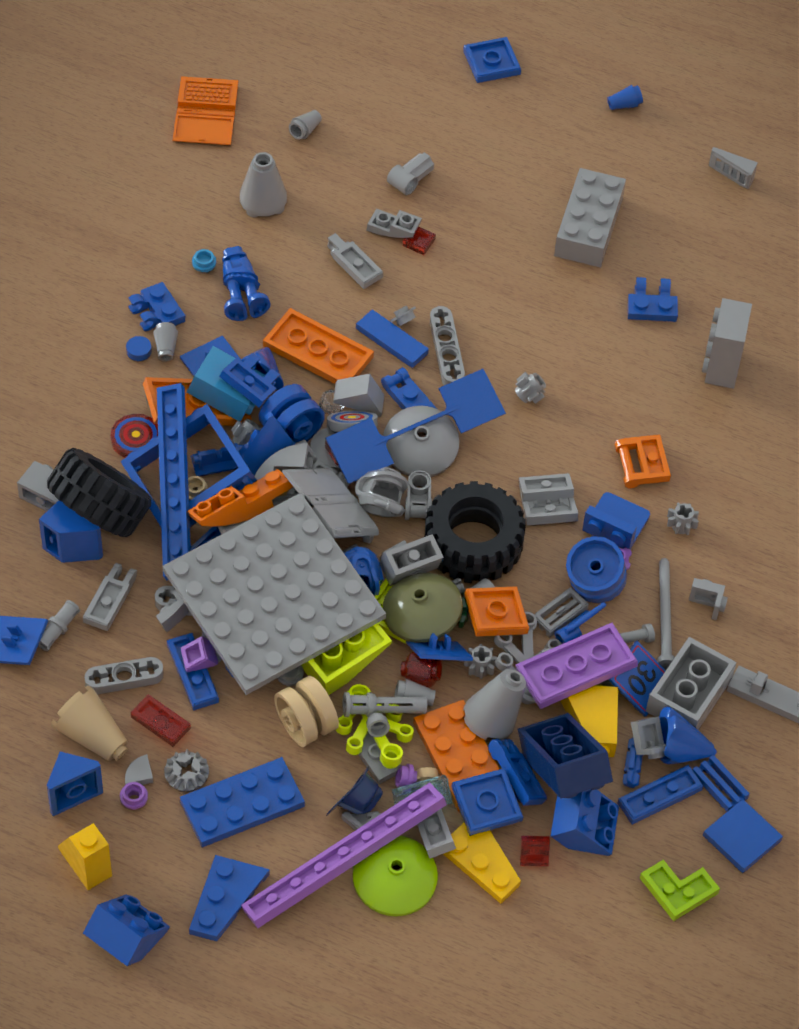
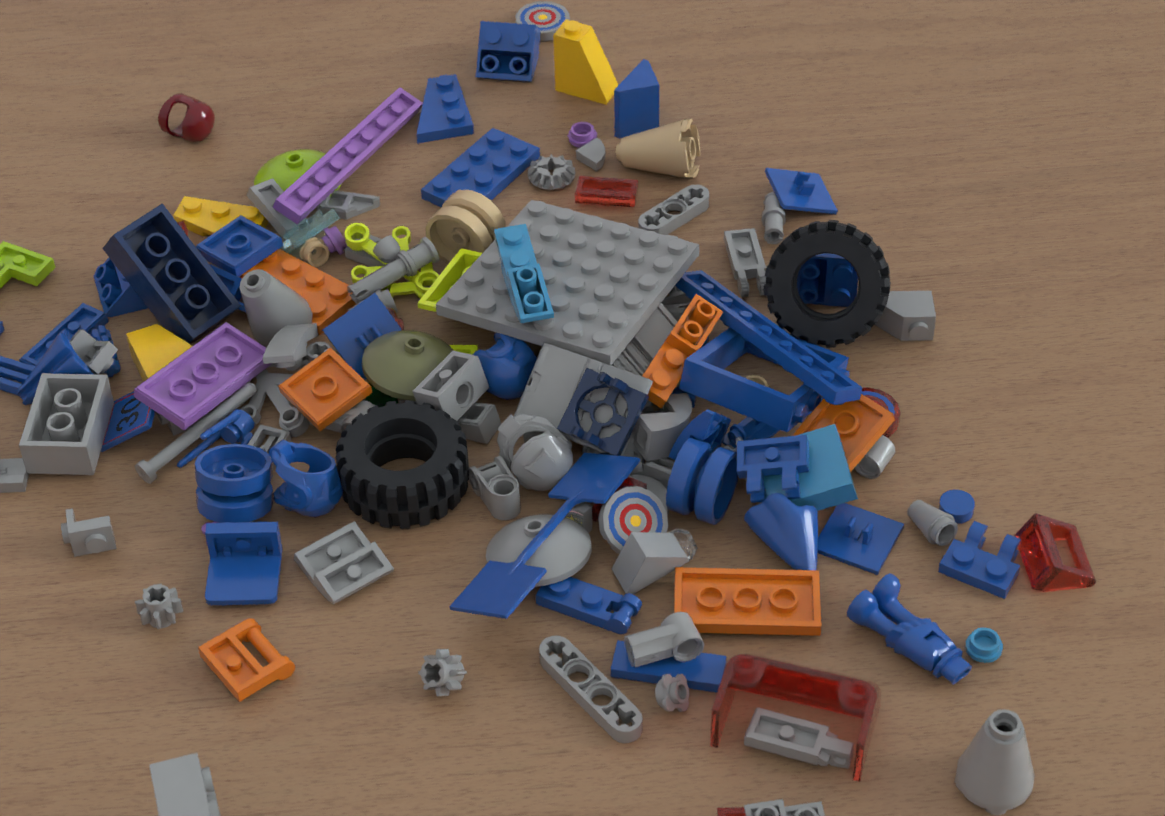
camera: 155 degrees right, 10 degrees down
(62, 967) = (544, 14): none -> tile
(116, 299) = (1043, 558): none -> clear red tile
(320, 572) = (522, 274): none -> dark azure slope
(331, 286) = (802, 686): none -> clear red windscreen
(344, 474) = (593, 380): none -> dark blue piece
(362, 796) = (373, 201): dark blue piece -> none
(383, 335) = (674, 638): none -> light grey piece
(450, 986) = (196, 123): none -> dark red helmet
(502, 655) = (289, 345): none -> light grey slope
(546, 548) = (308, 492): none -> blue helmet
(665, 614) = (111, 455): light grey bar -> none

